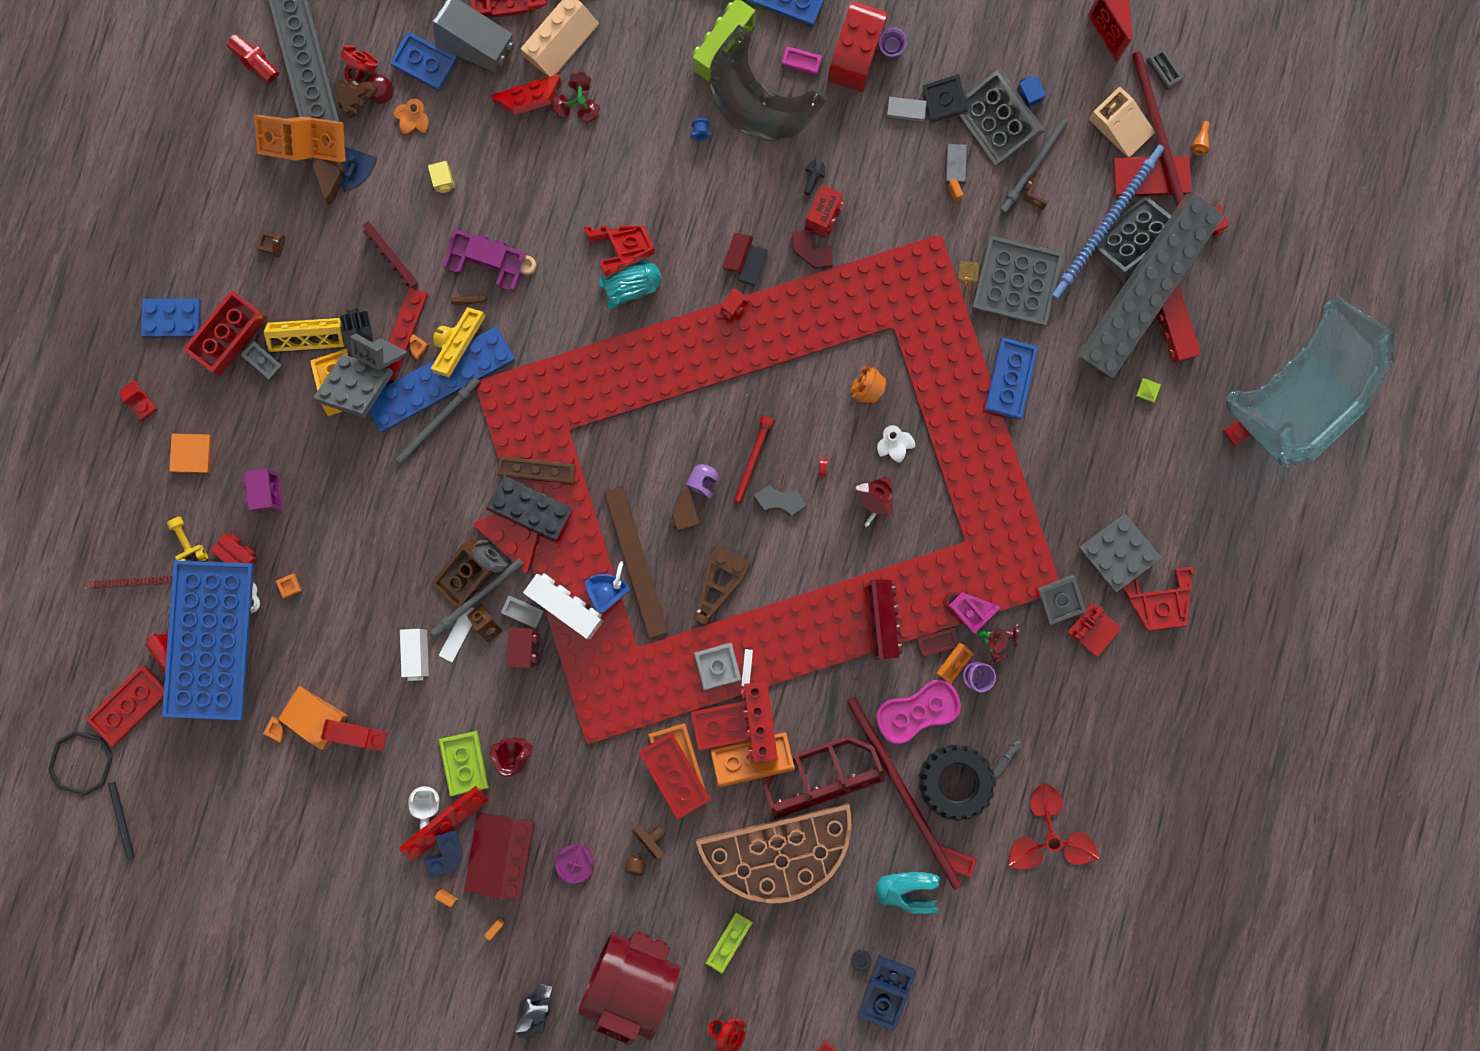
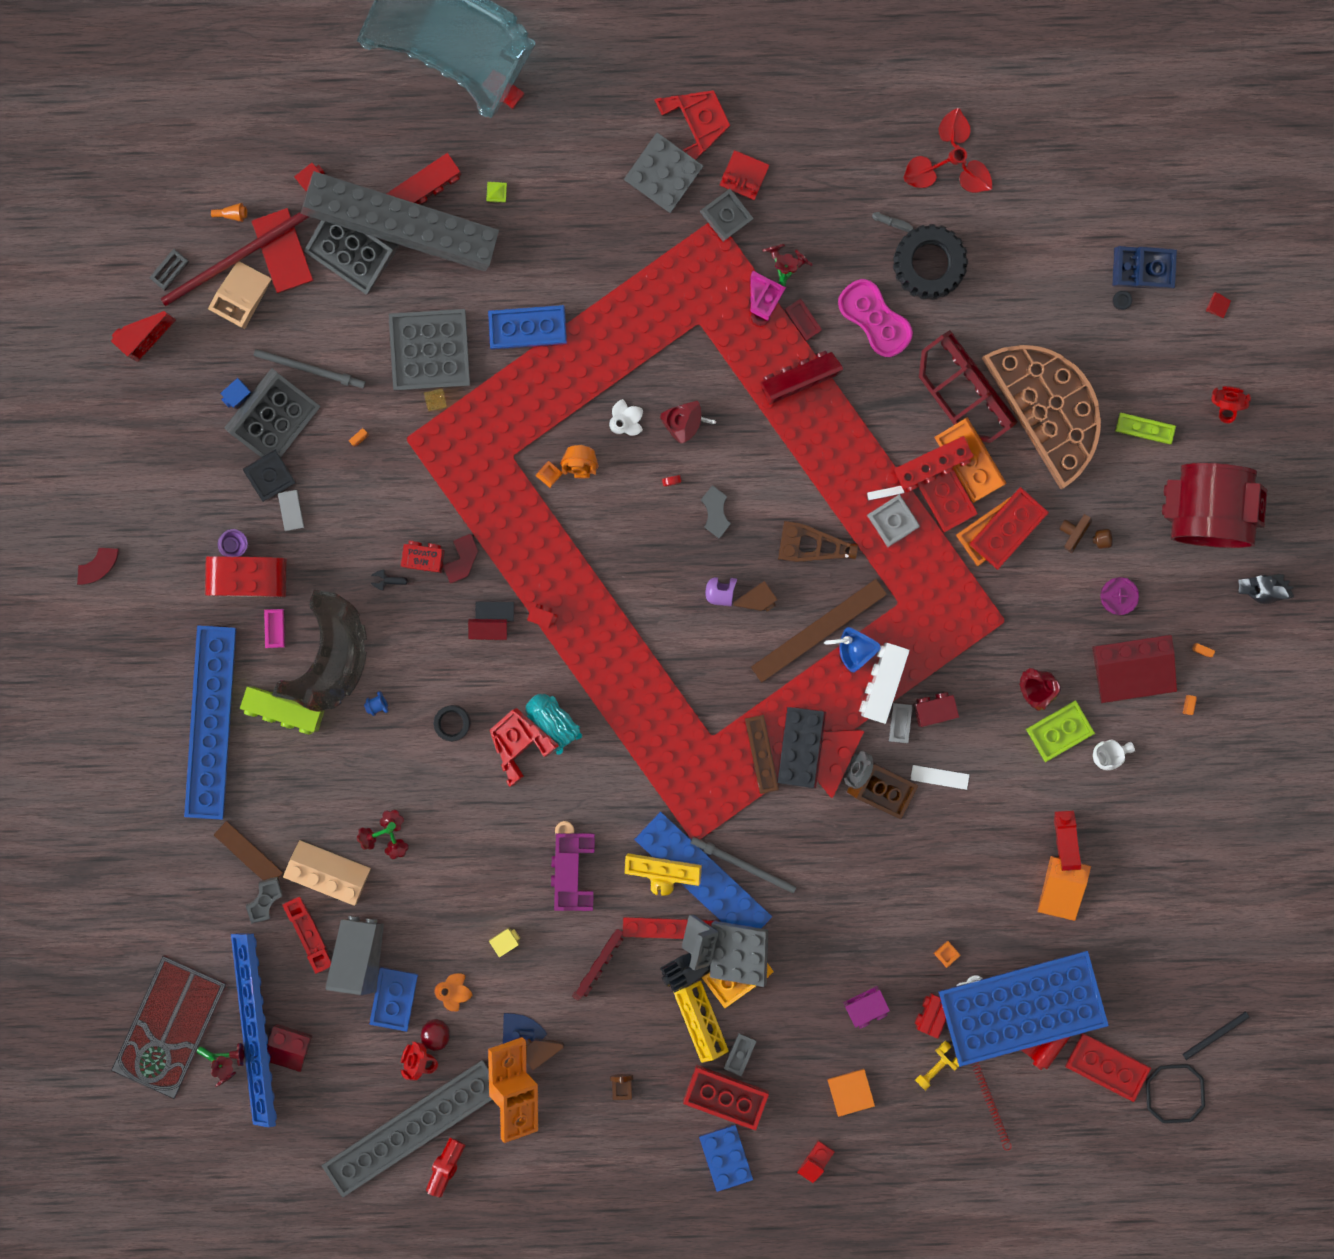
camera: 110 degrees left, 5 degrees up
(274, 730) = (1086, 920): orange tile -> none
(352, 95) = (451, 1054): reddish brown rock -> none
(414, 654) = (974, 810): white brick -> none
(417, 346) = (678, 909): orange tile -> none
(443, 823) = (1121, 730): red plate -> none
(449, 621) = (931, 790): dark grey bar -> none
(450, 855) = (1153, 714): dark blue plate -> none
(463, 300) = (616, 876): reddish brown piece -> none
(482, 622) = (922, 756): reddish brown bracket -> none
(528, 96) = (397, 883): red wing -> none
(664, 178) = (437, 723): none -> black tyre
(765, 424) = (647, 548): red piece -> none
(865, 355) = (549, 474): none -> orange tile
(892, 887) = (1047, 291): teal hair -> none
(904, 794) = (955, 308): dark red piece -> none
(955, 663) = (818, 297): orange plate -> none
(956, 163) = (330, 445): flat silver tile -> none
(960, 862) = (1003, 240): red tile -> none
(985, 673) = (830, 269): medium lavender helmet -> none
(1030, 197) = (334, 365): reddish brown bracket -> none
(1148, 165) = (413, 301): medium blue hose -> none

